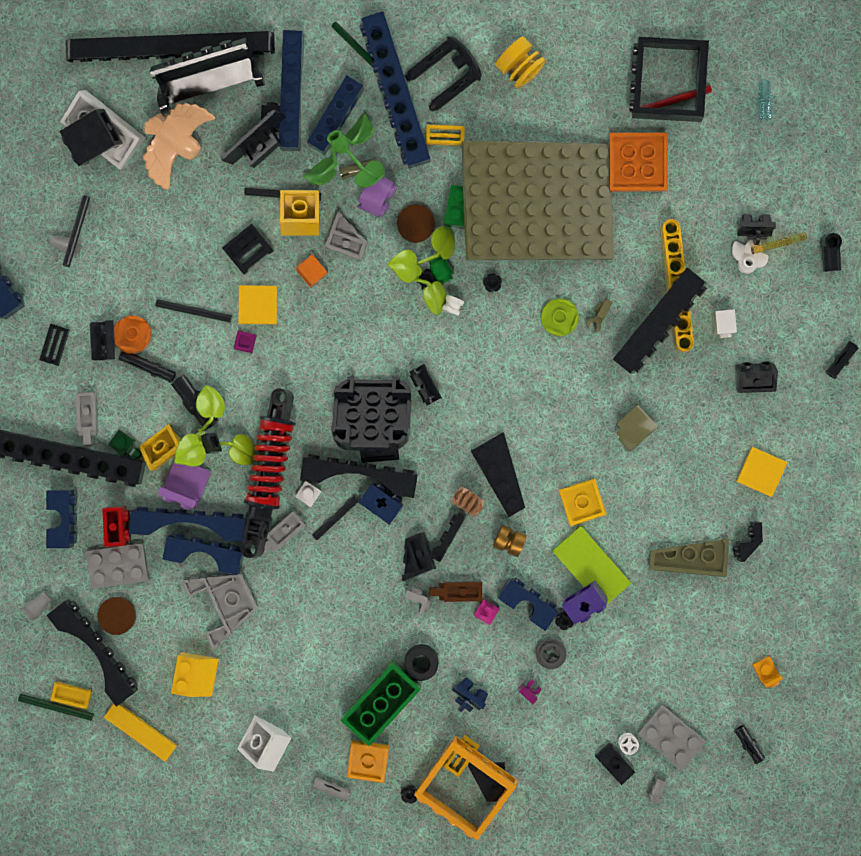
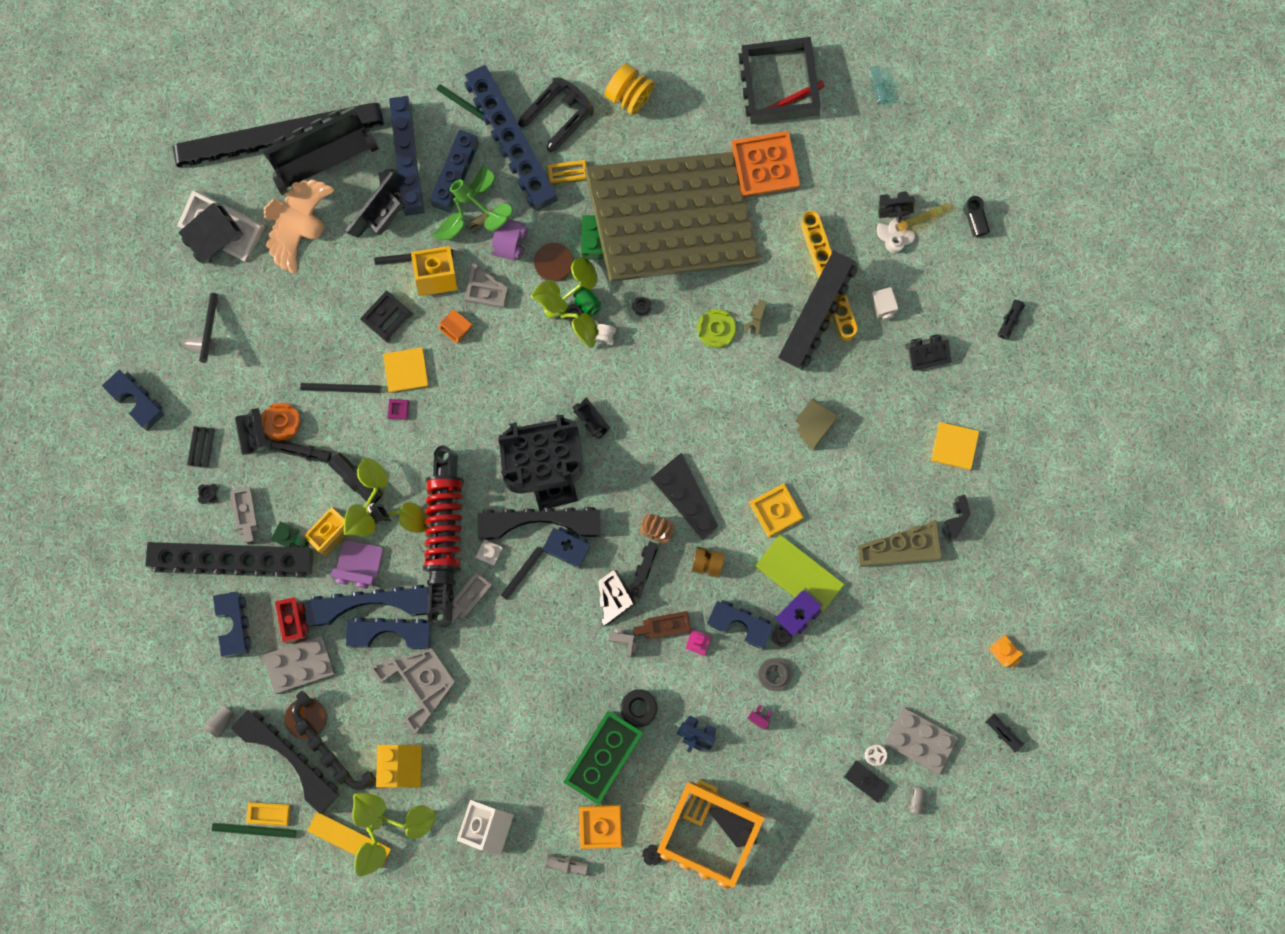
camera: 10 degrees left, 10 degrees down
(50, 390) = (203, 489): none -> black plate
(123, 641) = (317, 743): none -> black bar
(161, 718) = (368, 813): none -> lime plant

